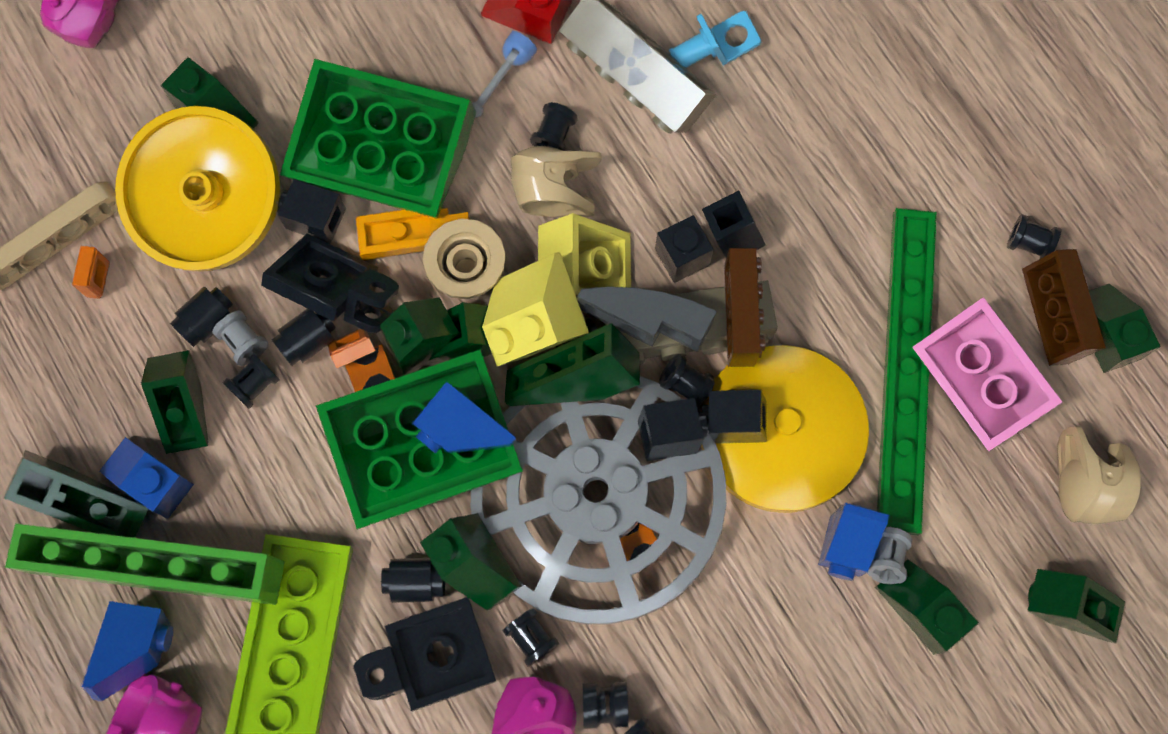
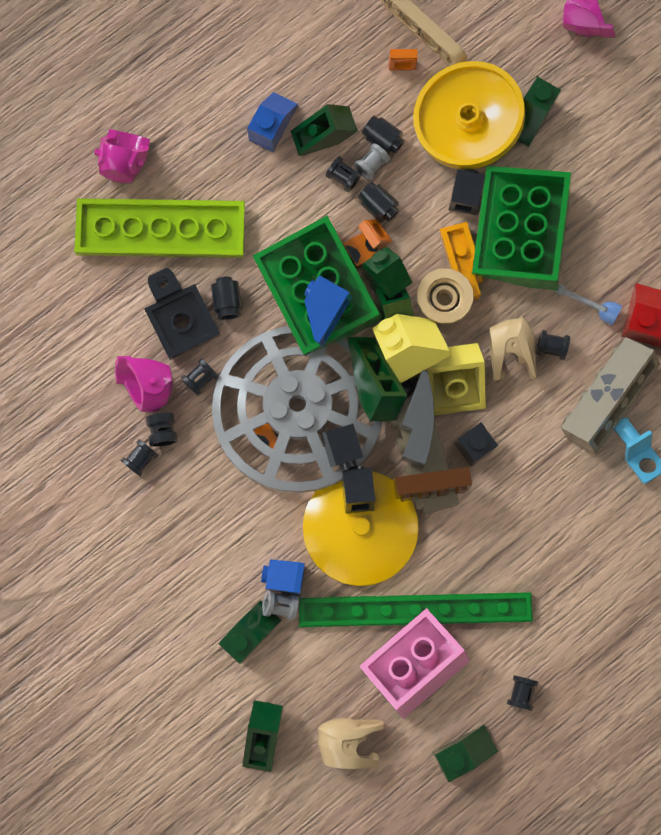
camera: 80 degrees right, 5 degrees up
(73, 497) = (252, 78): dark green slope -> none
(126, 648) = (162, 130): blue slope -> none
(146, 563) = (213, 131): bright green brick -> none
(347, 288) = (415, 224): black plate -> none
(471, 561) = (242, 331): dark green slope -> none
(686, 380) = (382, 456): black bush -> none
(733, 224) = (496, 476): black brick -> none
(1063, 307) = (471, 714): reddish brown piece -> none

